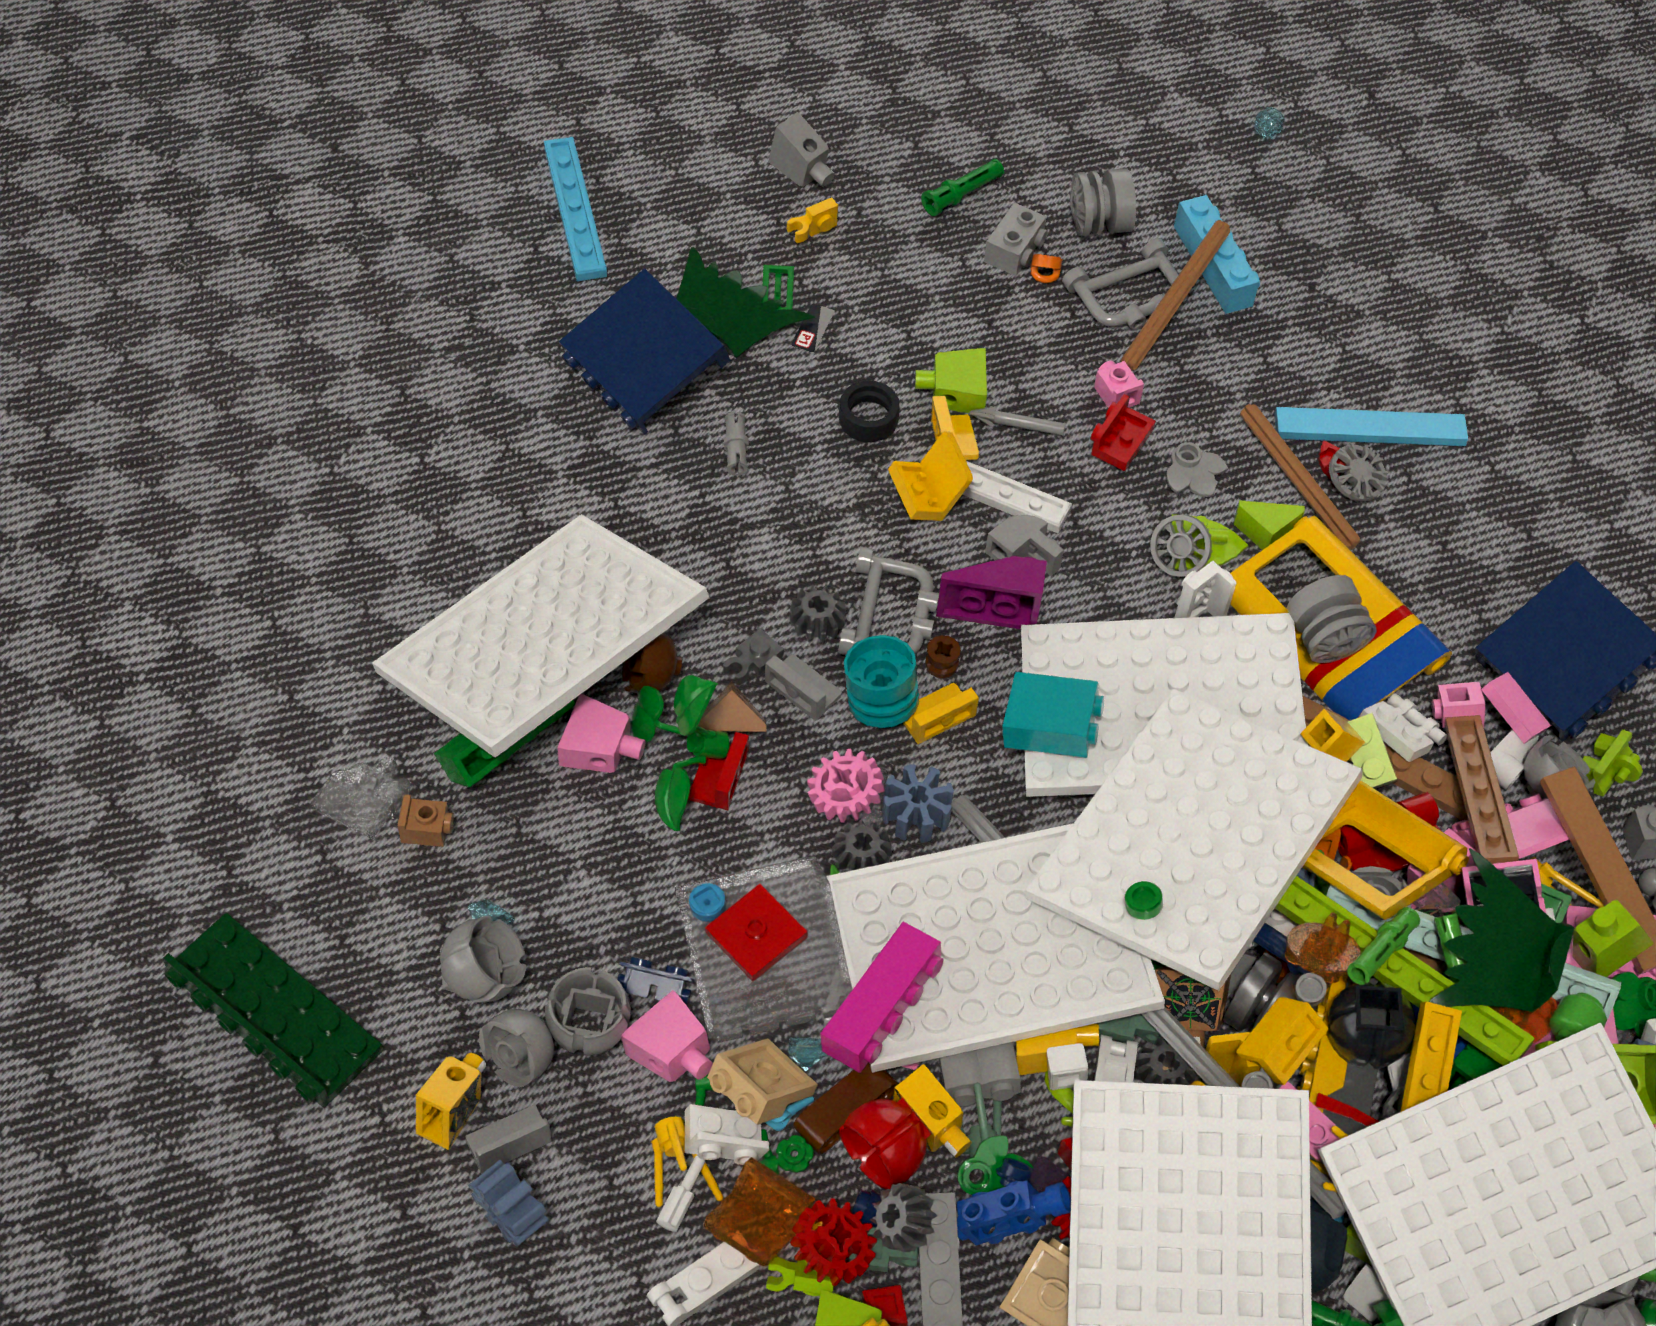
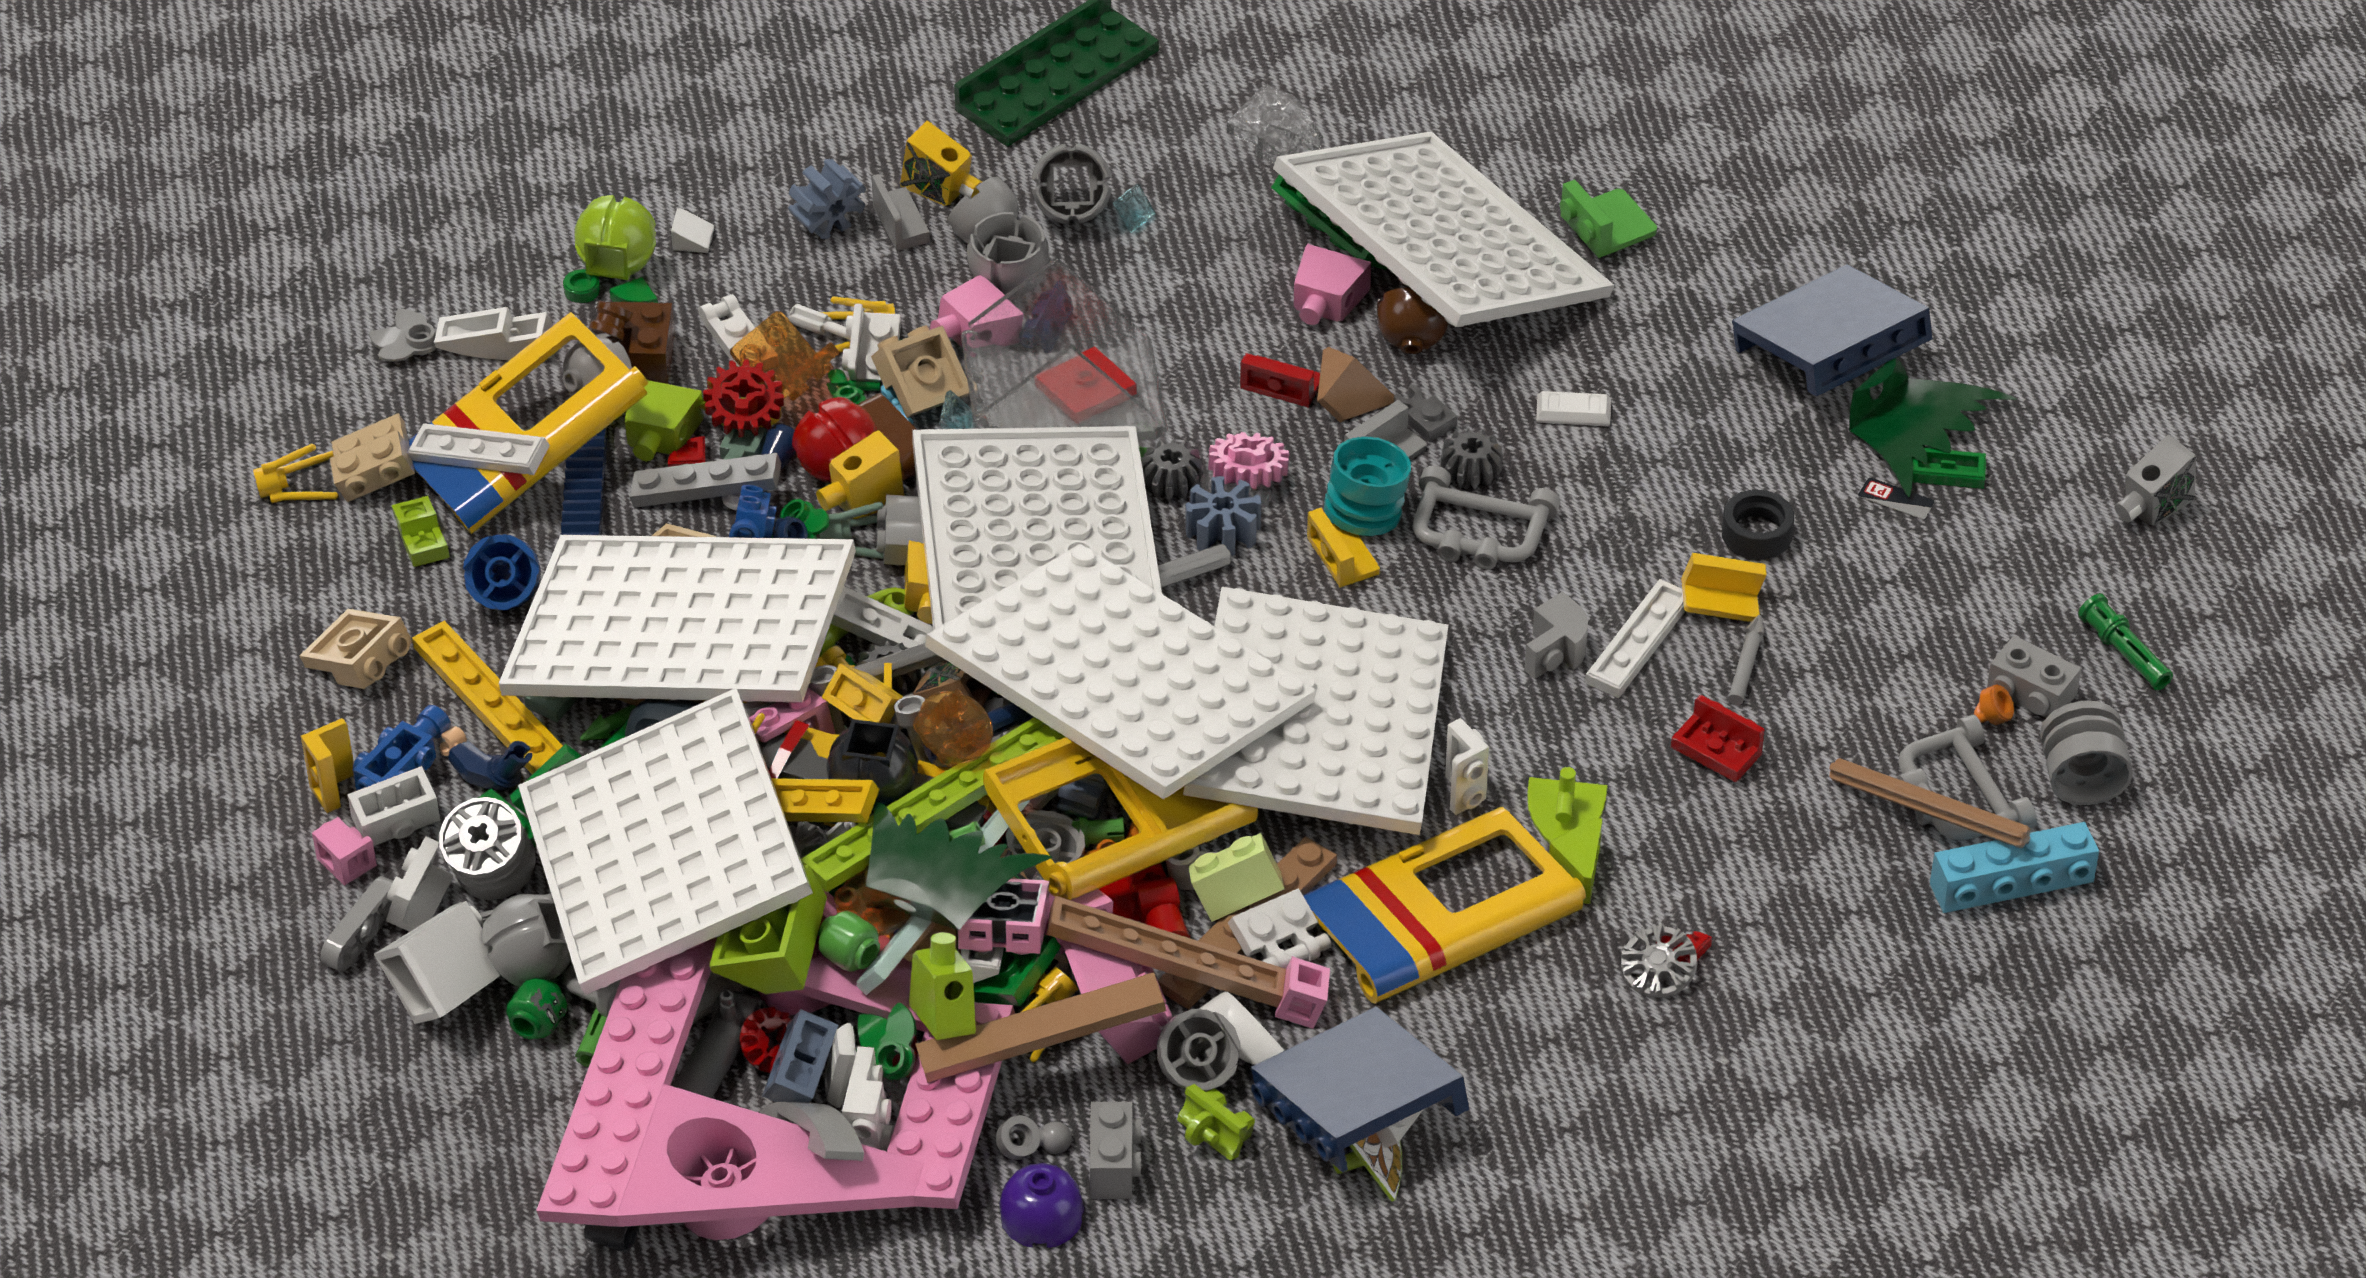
camera: 100 degrees right, 10 degrees down
(424, 822) = (1242, 163): medium nougat brick -> none
(492, 522) = (1605, 221): none -> bright green bracket
(575, 209) = (2074, 304): medium azure tile -> none
(689, 704) = (1305, 351): green plant -> none
(707, 902) = (1122, 349): dark azure tile -> none
(734, 547) = (1573, 408): none -> white tile
(736, 443) = (1714, 415): light grey pin -> none
(817, 219) = (2059, 500): yellow plate -> none
(881, 997) = (978, 430): dark pink brick -> none
(903, 1217) = (751, 436): flat silver gear -> none
(935, 483) = (1642, 556): yellow bracket -> none
(938, 664) = (1410, 556): reddish brown wheel -> none
(958, 377) = (1803, 605): lime torso -> none
(994, 592) = (1478, 597): magenta slope -> none
(1052, 714) = (1299, 597): teal brick -> none
(1066, 1065) = (893, 577): white slope -> none
(1115, 380) = (1796, 749): bright pink brick -> none
(1144, 900) = (1034, 597): green tile -> none
(1181, 545) = (1543, 763): light grey wheel -> none
(1196, 472) = (1669, 808): light grey plate -> none
(1269, 122) = (2264, 963): clear light blue plate -> none
(1299, 475) = (1656, 906): medium nougat axle -> none
(1331, 618) = (1406, 850): light grey wheel -> none
(1332, 736) = (1233, 809): yellow brick -> none
(1371, 426) = (1736, 994): medium azure tile -> none
(1391, 937) = (980, 805): bright green pin -> none
(1515, 707) = (1288, 1026): bright pink tile -> none

